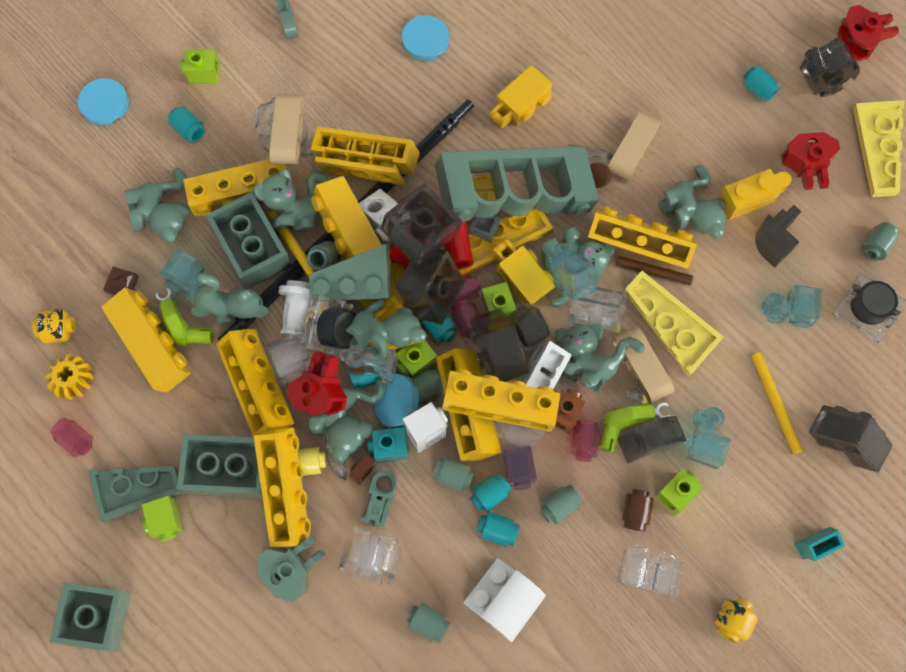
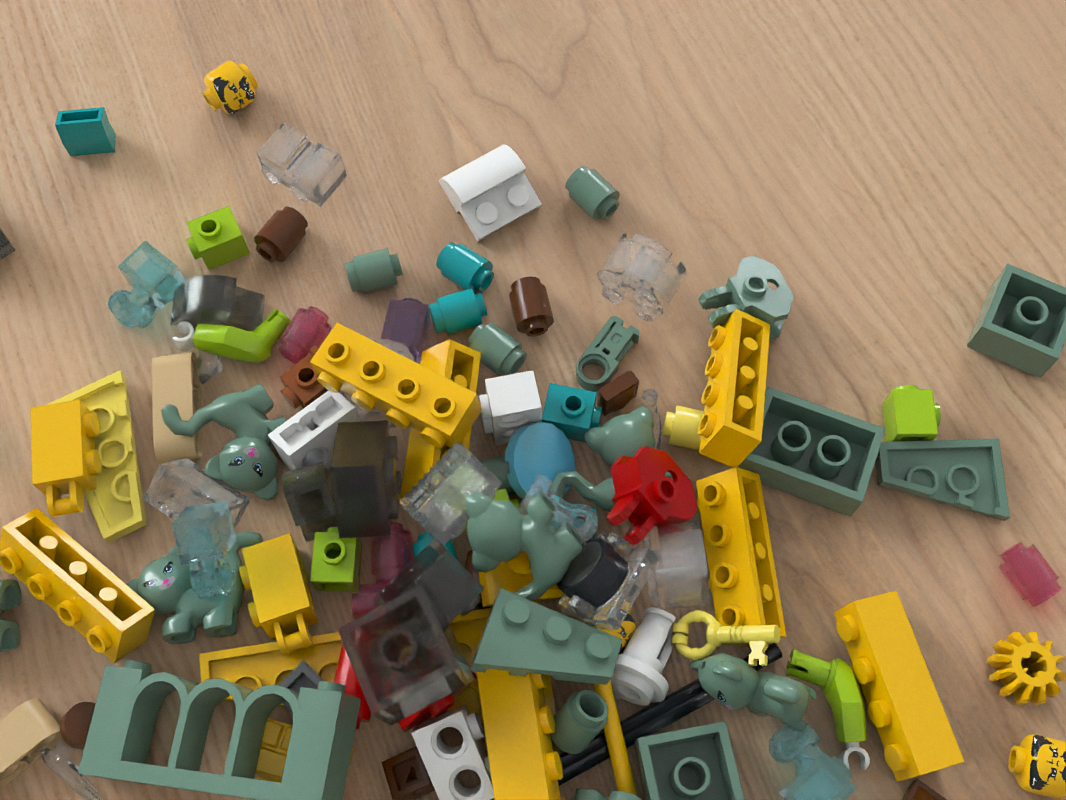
camera: 160 degrees left, 5 degrees down
(256, 326) = (756, 635): none -> light yellow piece
(440, 347) = (440, 496): none -> clear brick
(441, 514) = (530, 306): none -> reddish brown brick
(654, 270) = (108, 558): reddish brown bar -> none
(690, 303) = (64, 454): none -> yellow brick
(776, 403) = (31, 309): yellow bar -> none

